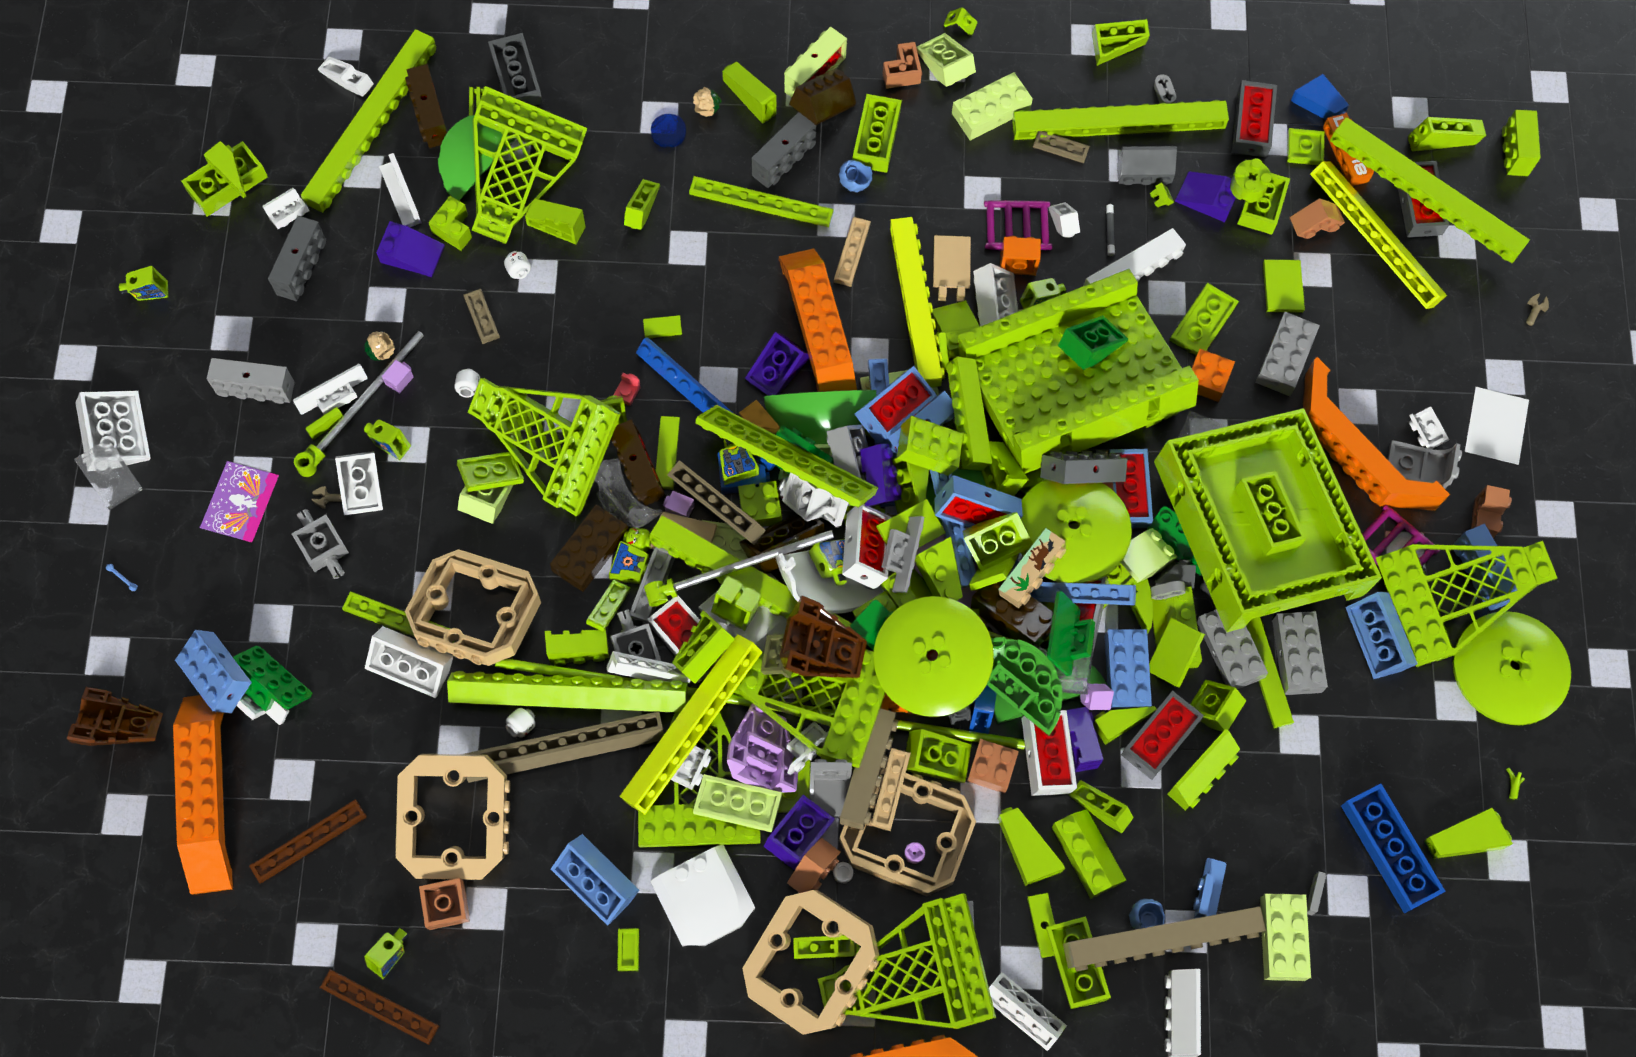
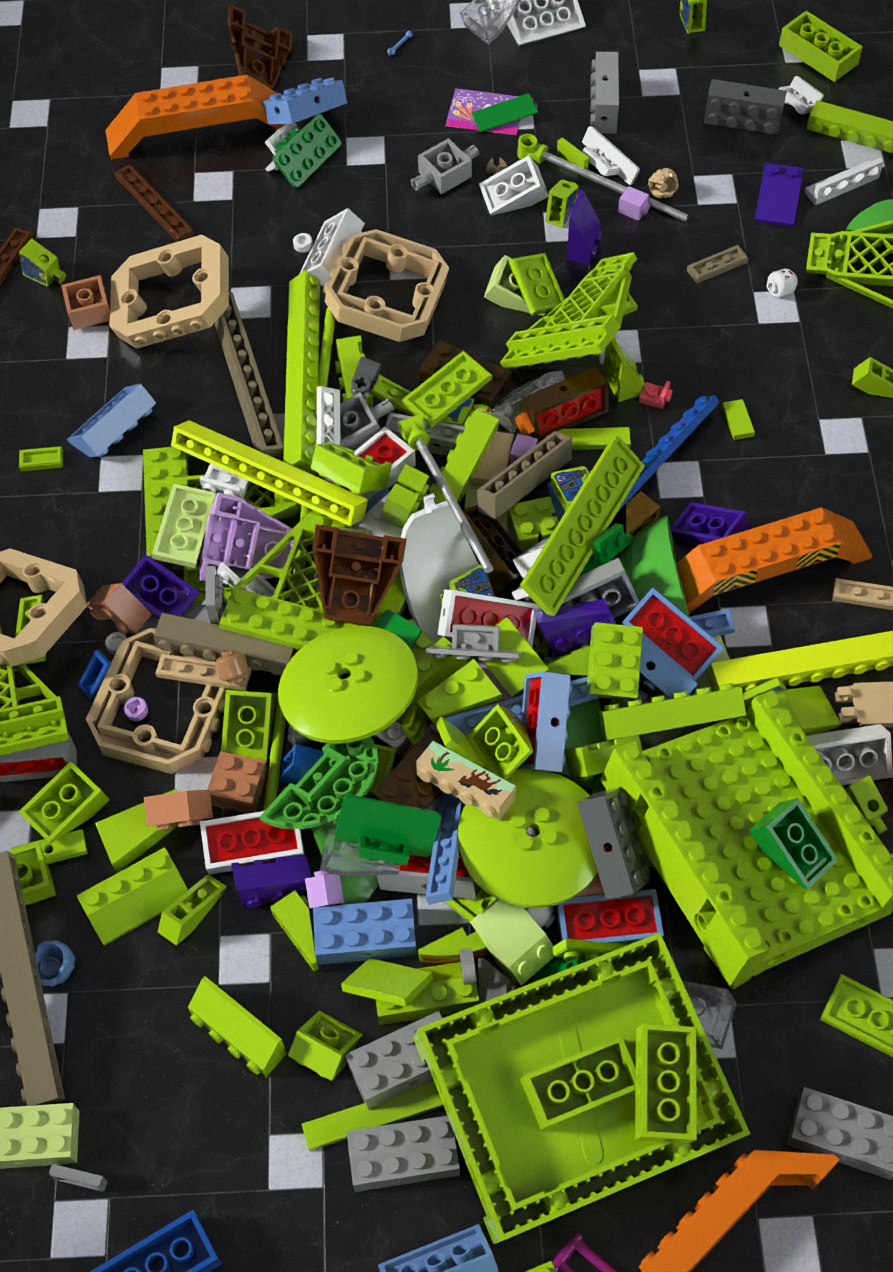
camera: 90 degrees right, 10 degrees down
(222, 160) = (827, 35): lime slope -> none
(249, 481) = (505, 112): none -> green piece
(379, 613) = (381, 221): lime tile -> none
(390, 690) = (303, 242): none -> white tile
(436, 425) = (583, 231): none -> dark purple slope
(448, 223) = (817, 218): lime brick -> none
(466, 382) = (643, 256): white head -> none
(520, 722) = (272, 342): white head -> none
(556, 220) = (843, 309): lime wedge -> none
(590, 630) = (365, 375): none -> dark grey piece
(613, 560) = (447, 389): none -> lime tile
(654, 500) = (524, 424): none -> orange tile
(704, 897) = (92, 518): white wedge -> none
(881, 887) = (94, 674): none -> blue slope
(899, 757) = (232, 666): none -> medium nougat head
(1007, 911) = (63, 803): none -> lime slope
(1027, 807) = (183, 807): none -> nougat brick
(1159, 513) = (581, 949): none -> lime tile
(1162, 735) = (280, 973): red brick -> none
(1210, 888) = (86, 1040): medium blue bracket -> none
(1212, 373) = (792, 1024): orange brick -> none
(1280, 451) = (666, 1084): none -> lime brick

